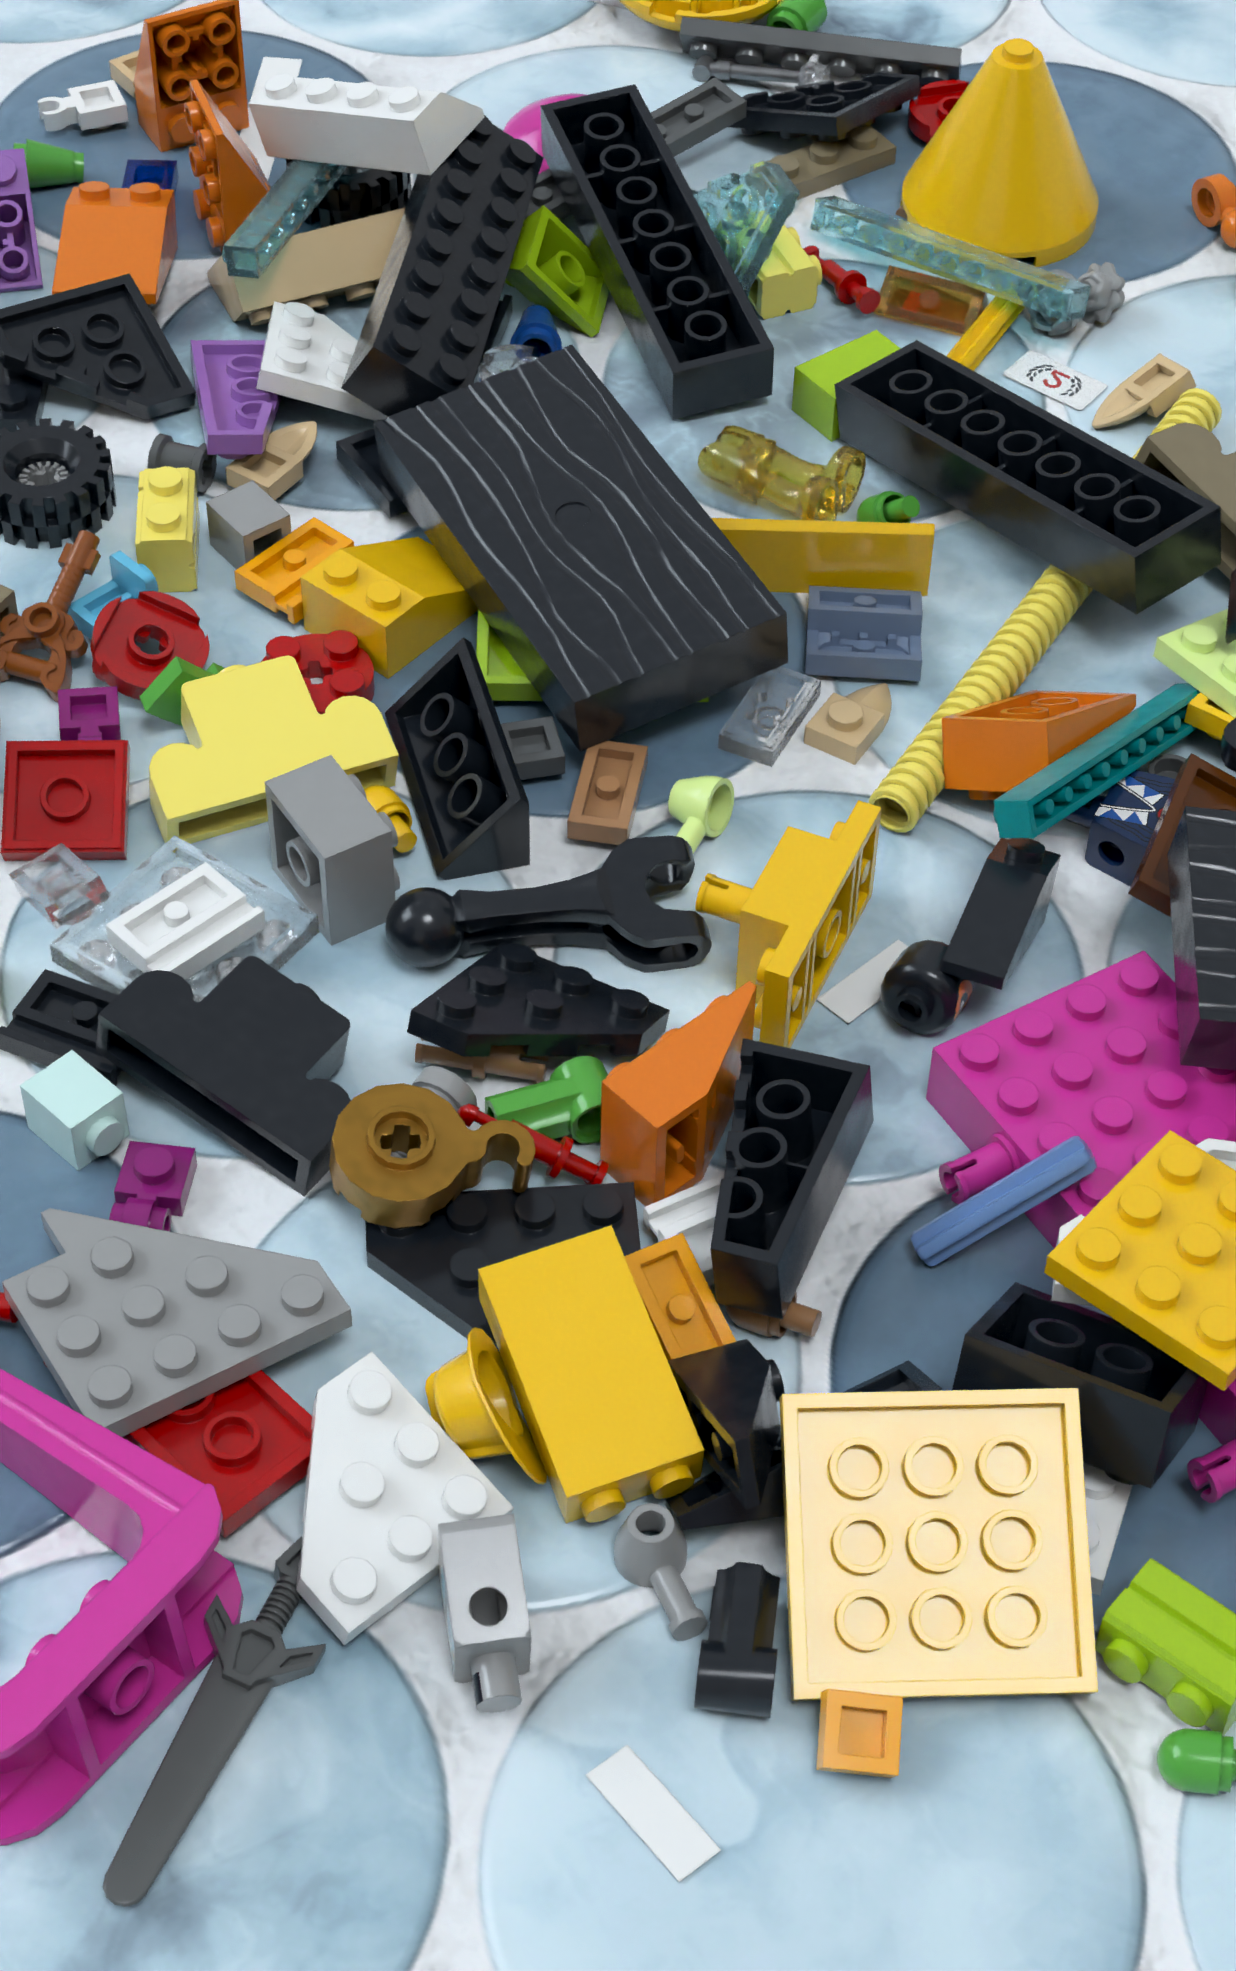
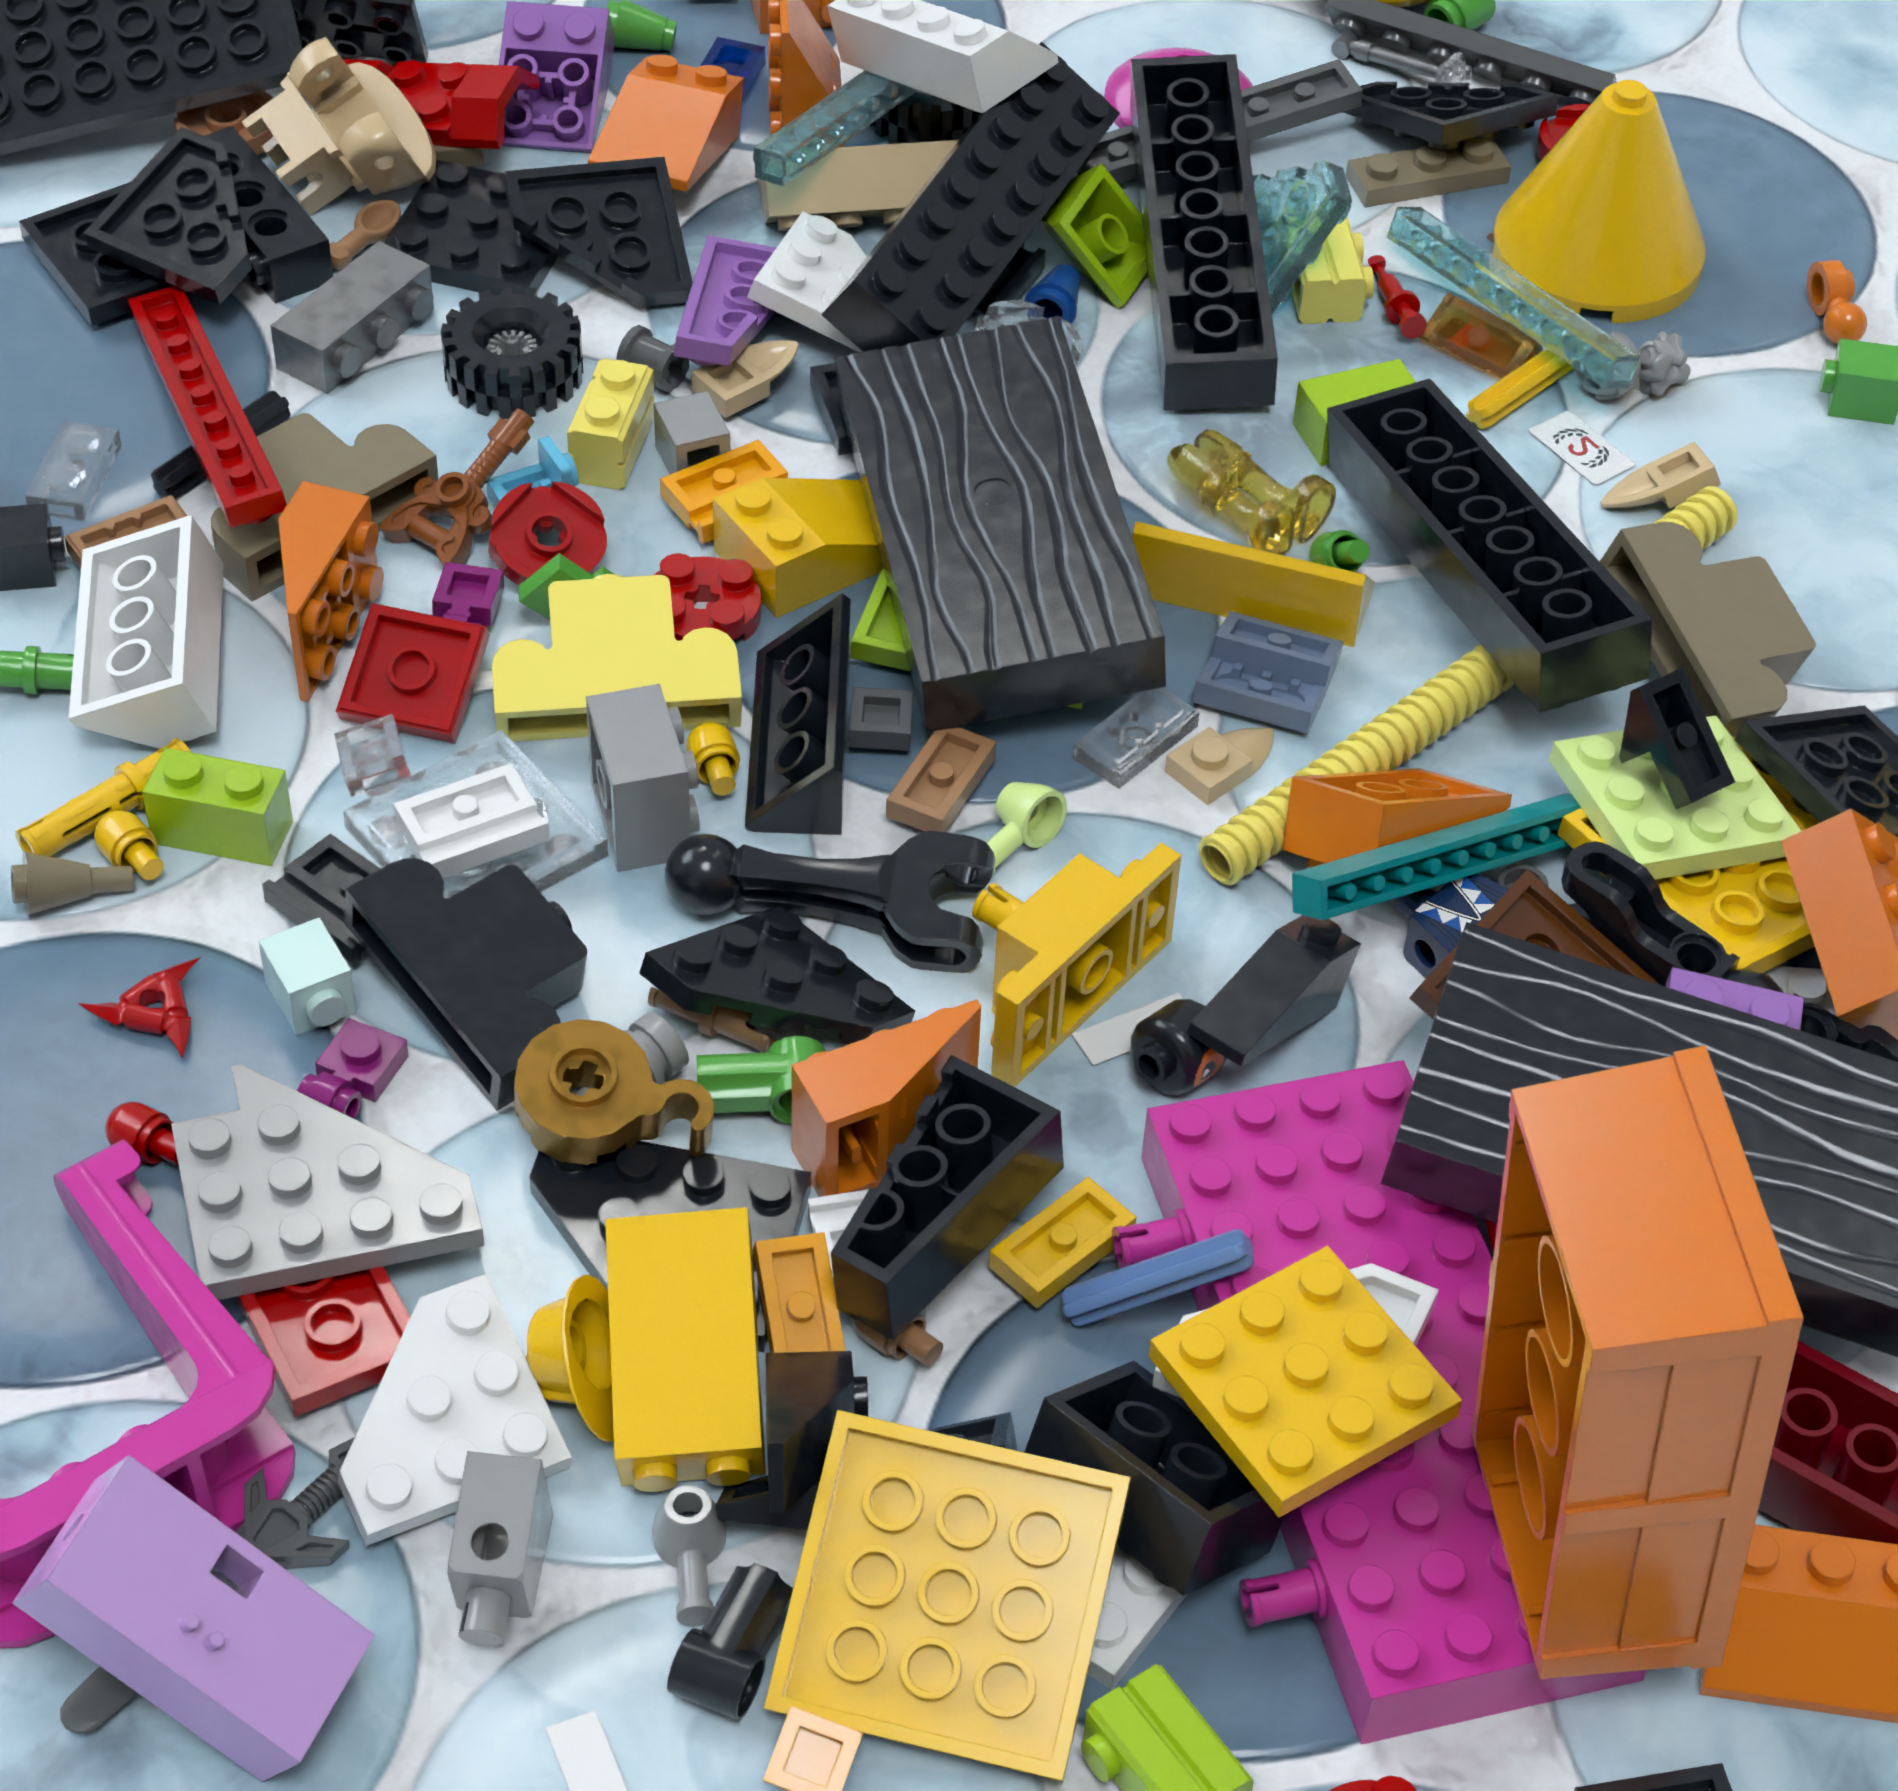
camera: 15 degrees right, 0 degrees up
(227, 1759) = (195, 1619): none -> lavender brick
(548, 1151) = (733, 1118): red piece -> none
(891, 1191) = (1060, 1242): none -> yellow plate

